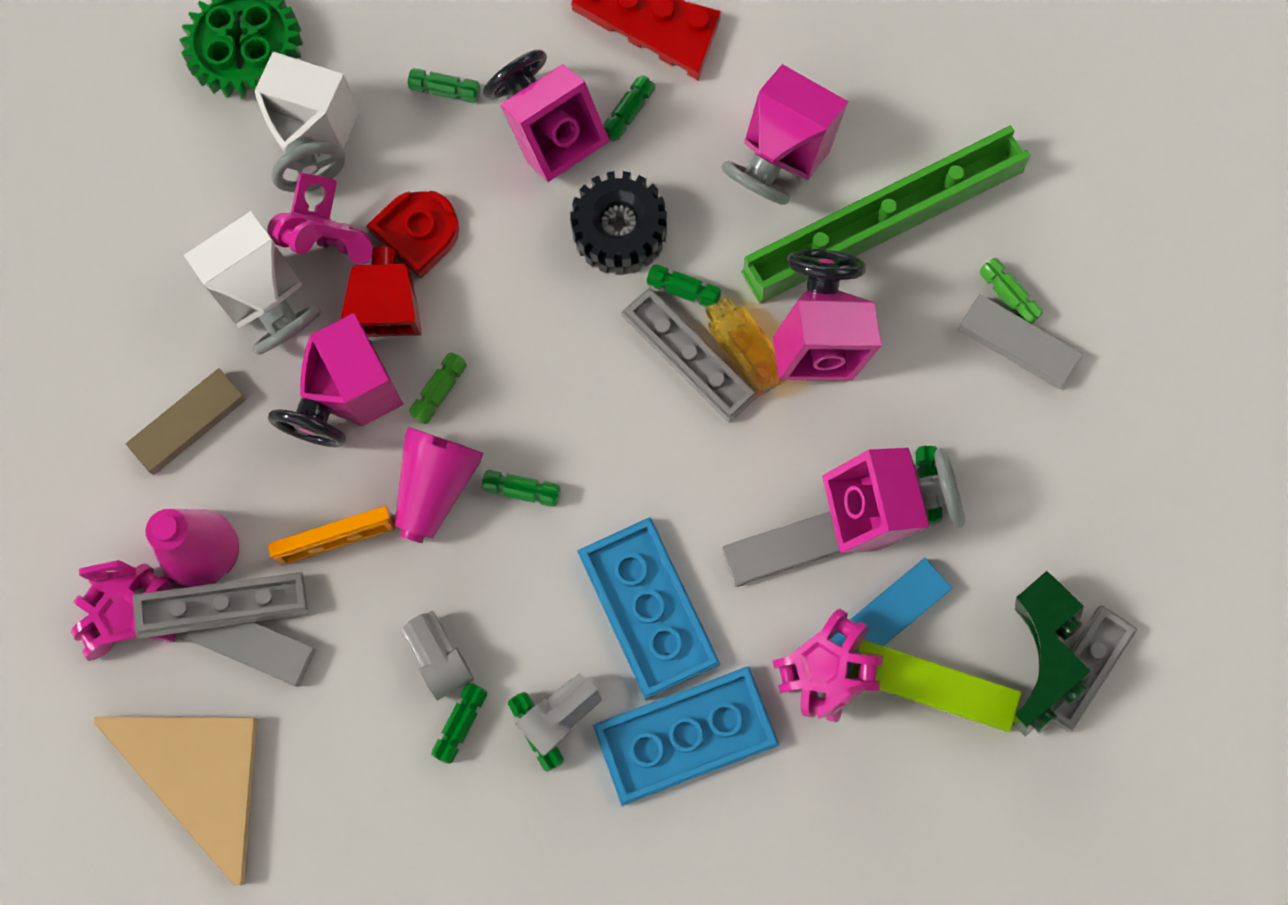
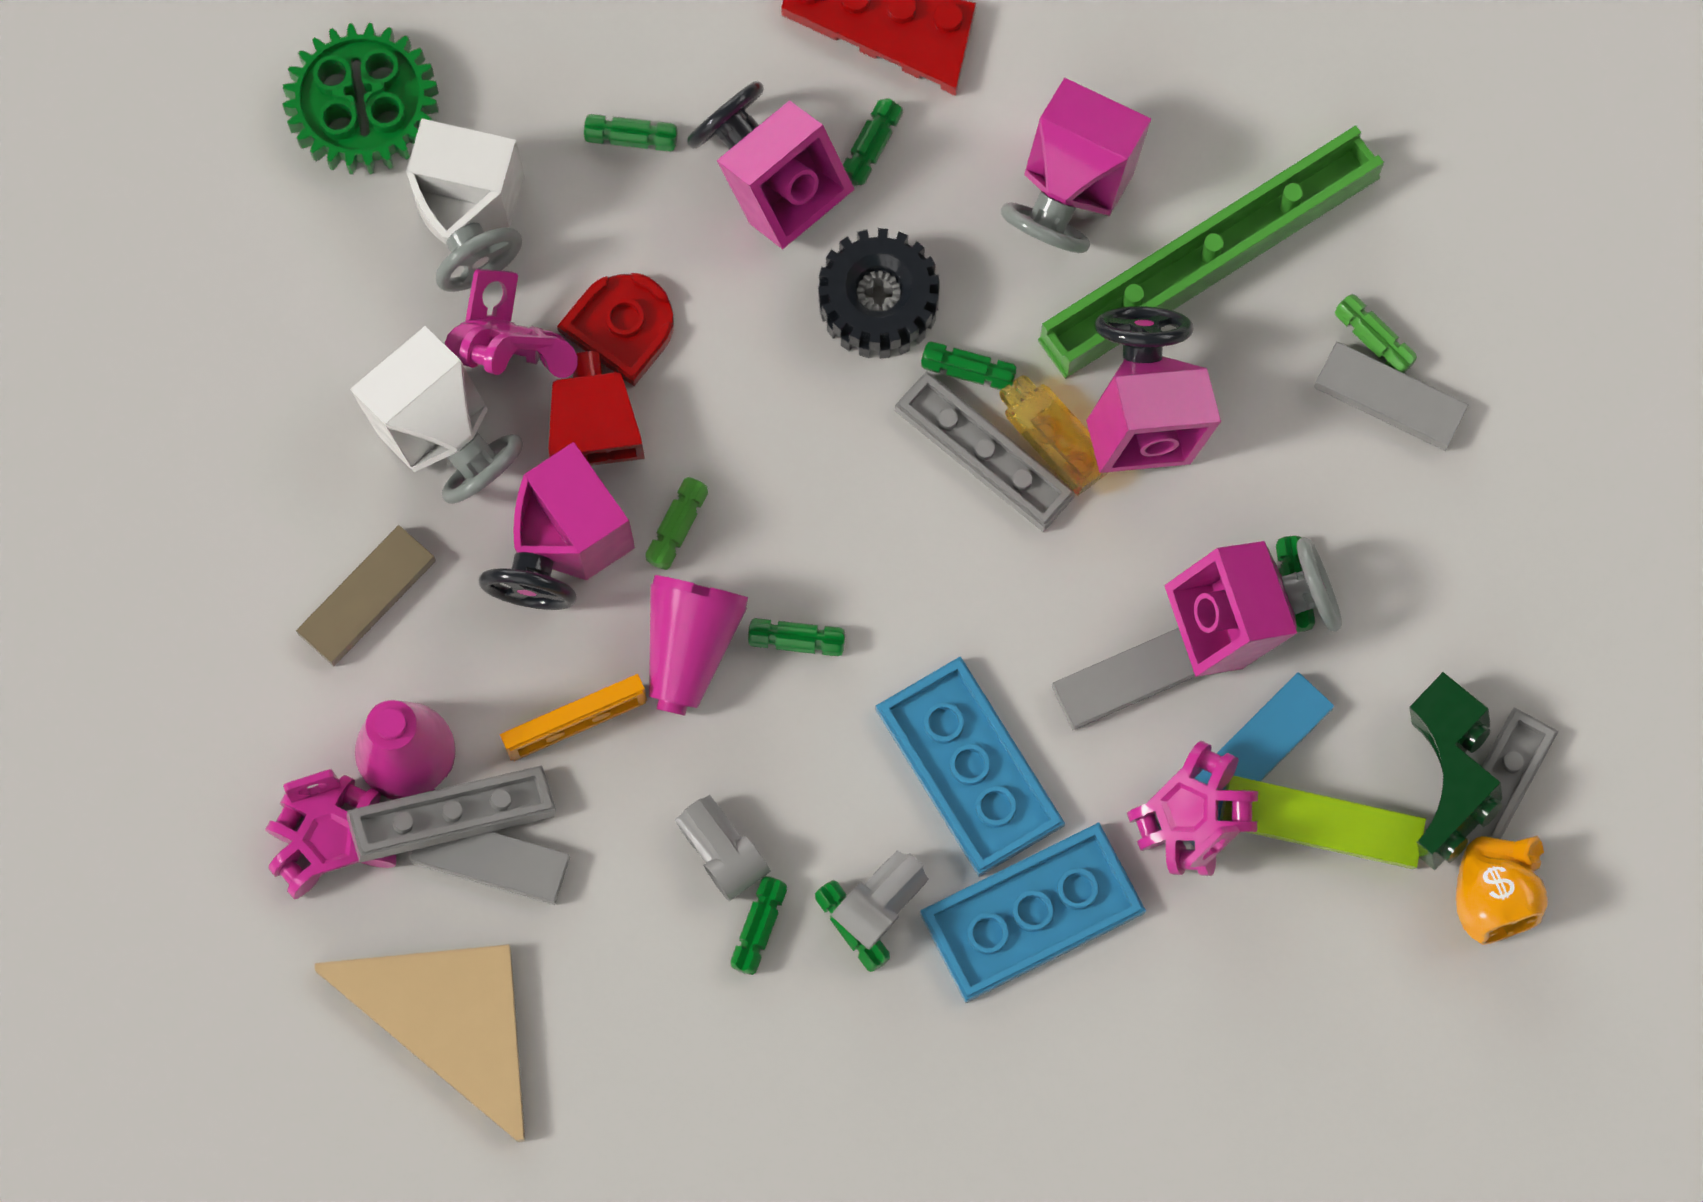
camera: 10 degrees left, 0 degrees up
(1079, 758) = (1499, 889): none -> light orange piece

